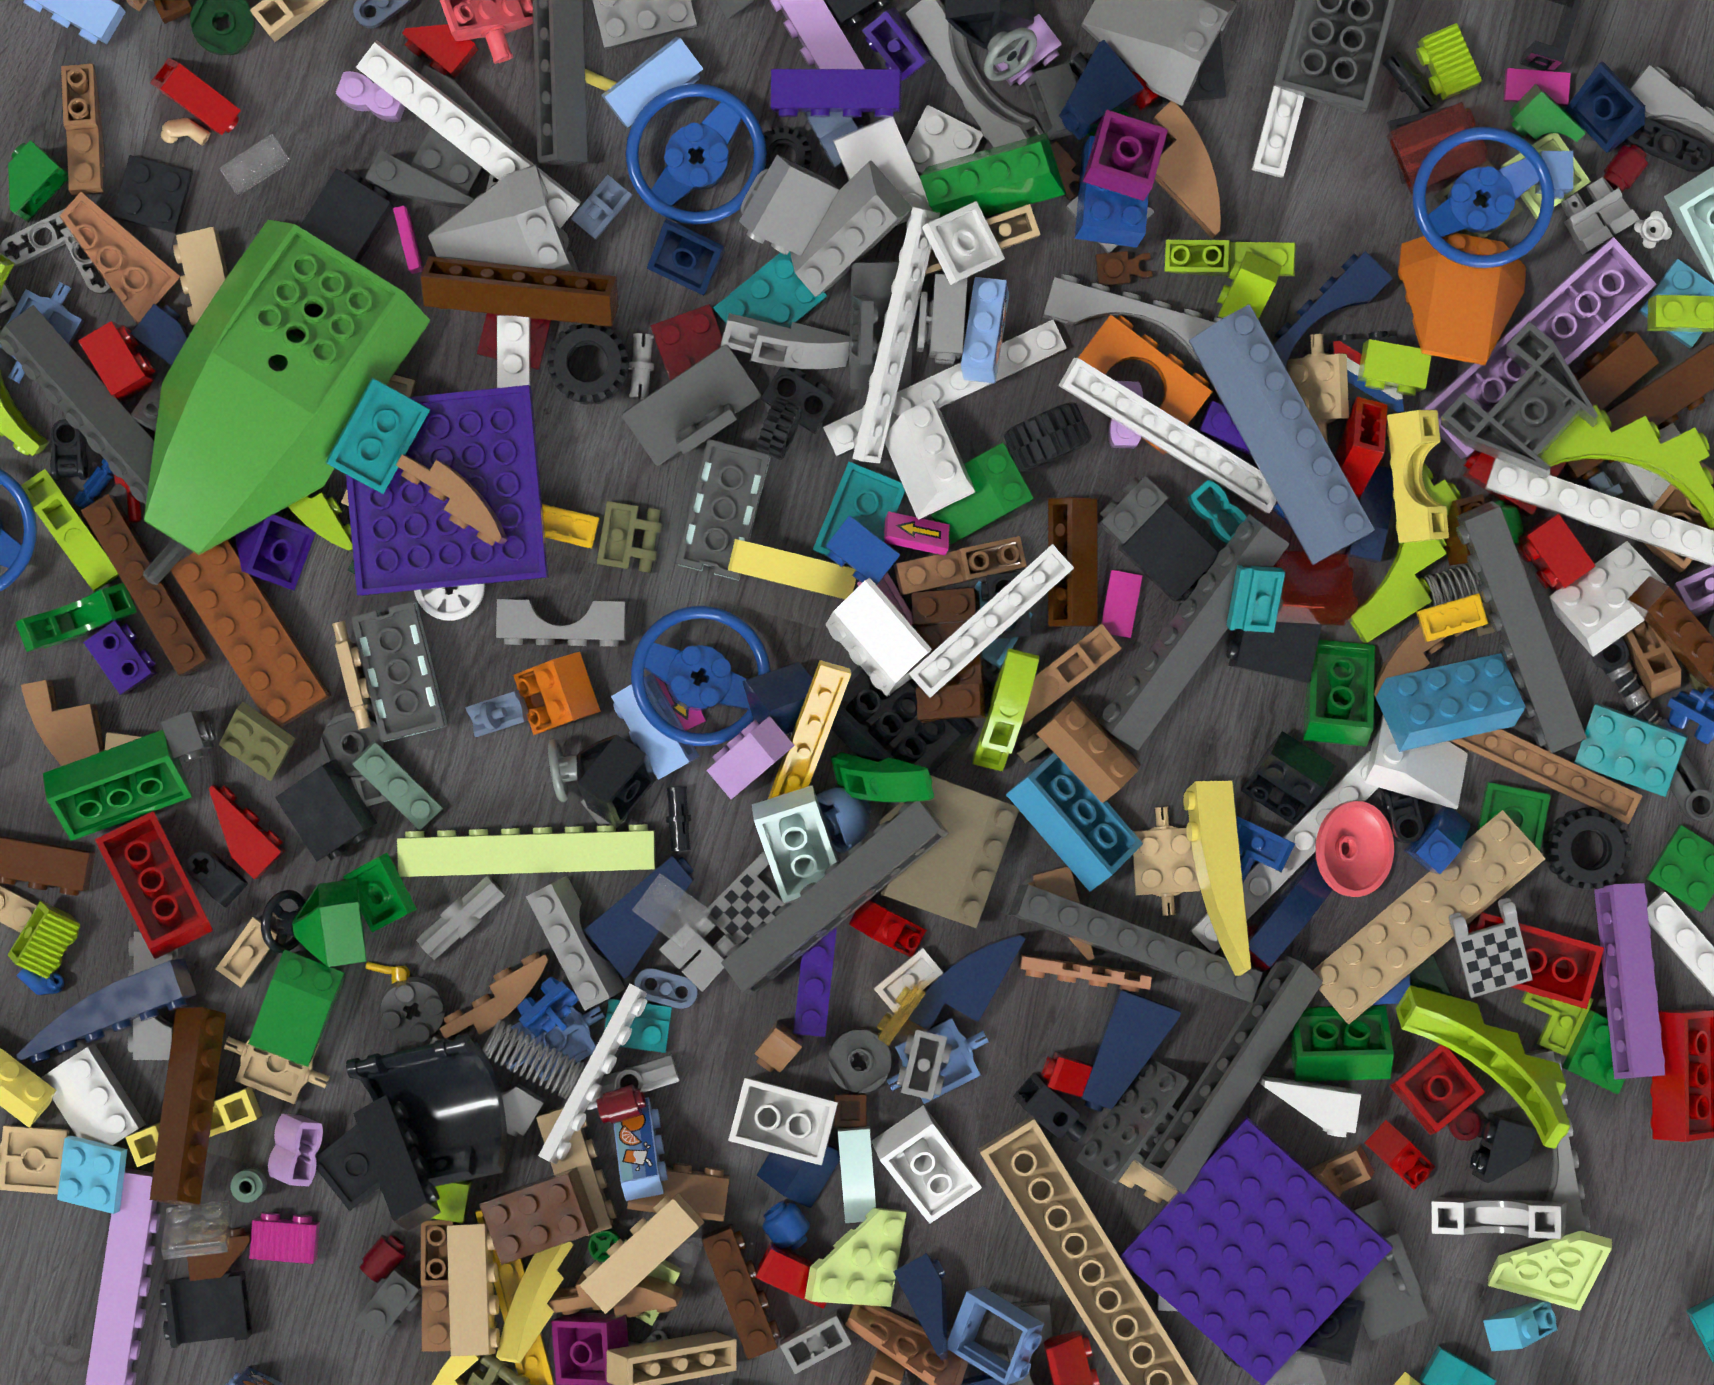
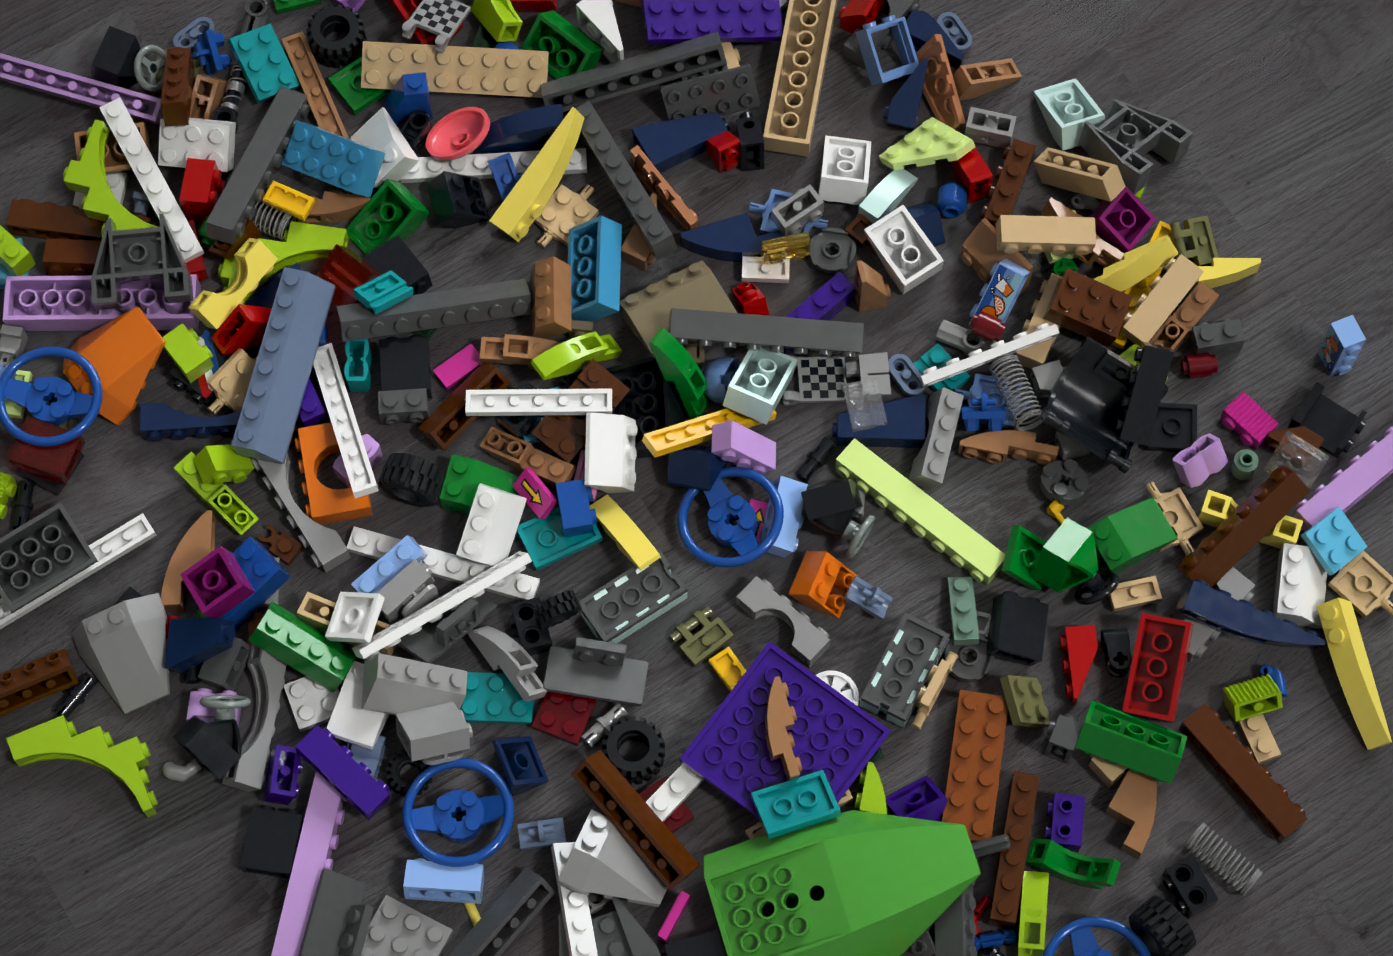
camera: 140 degrees left, 20 degrees down
(461, 917) = (991, 508): light grey piece -> none

